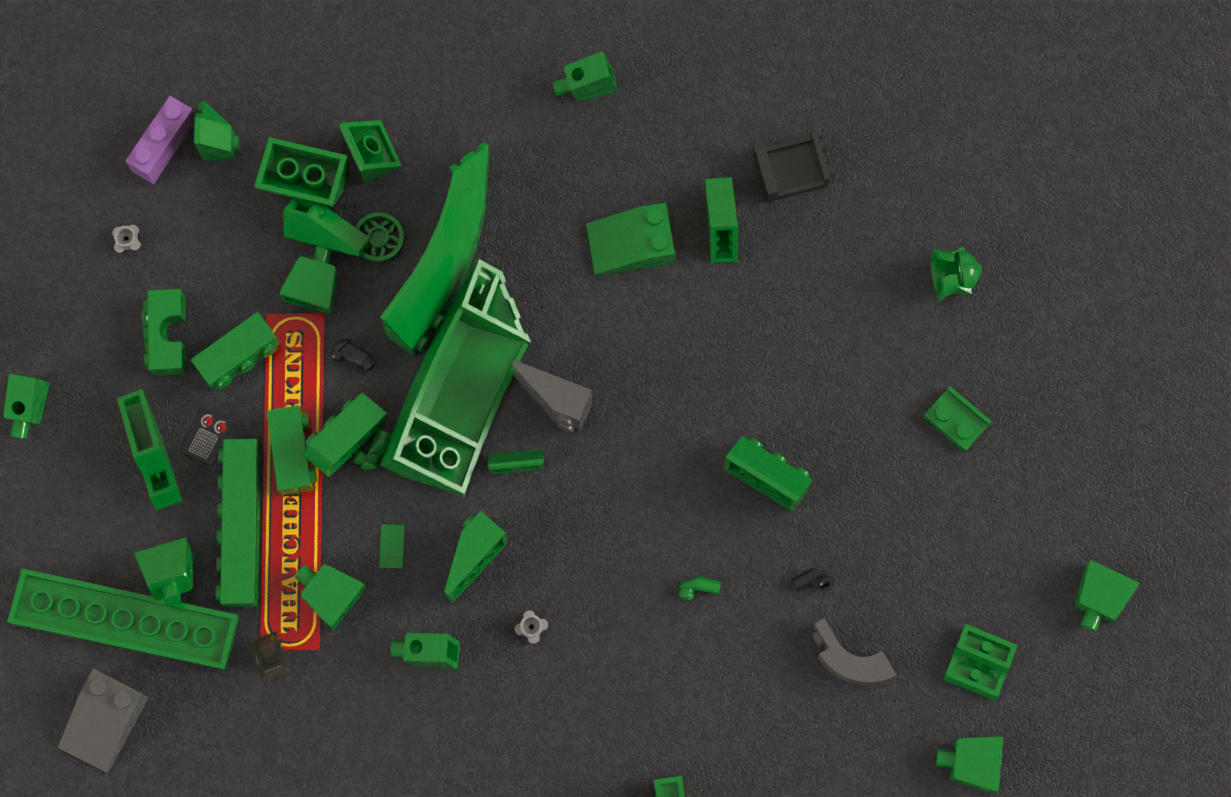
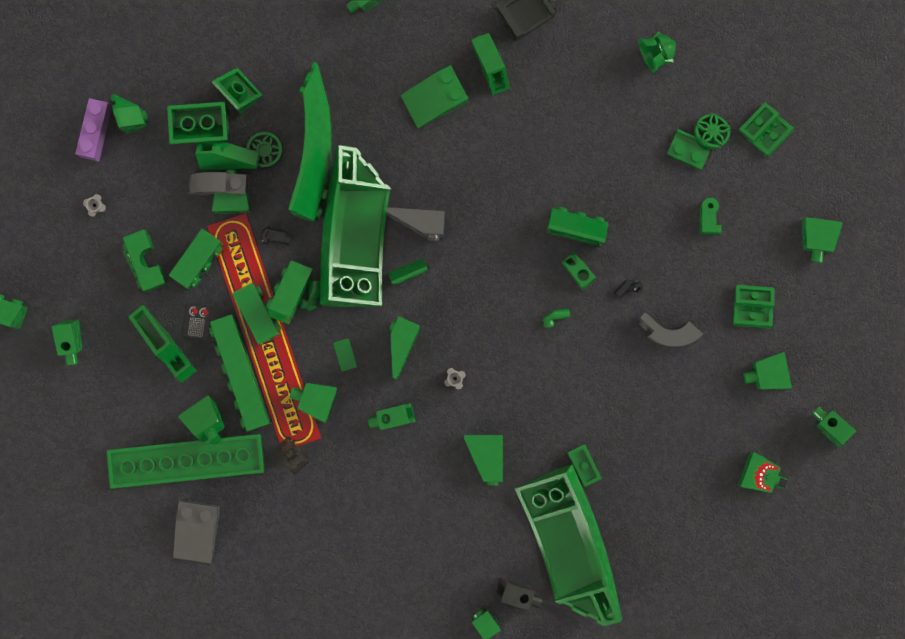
camera: 20 degrees left, 10 degrees up
(294, 256) = (217, 183): none -> dark grey arch
(540, 748) = (488, 456): none -> green slope
(751, 534) = (578, 271): none -> green leg
(953, 520) = (708, 217): none -> green leg
(996, 404) = (712, 131): none -> green wheel
(1072, 426) = (766, 129): none -> green slope

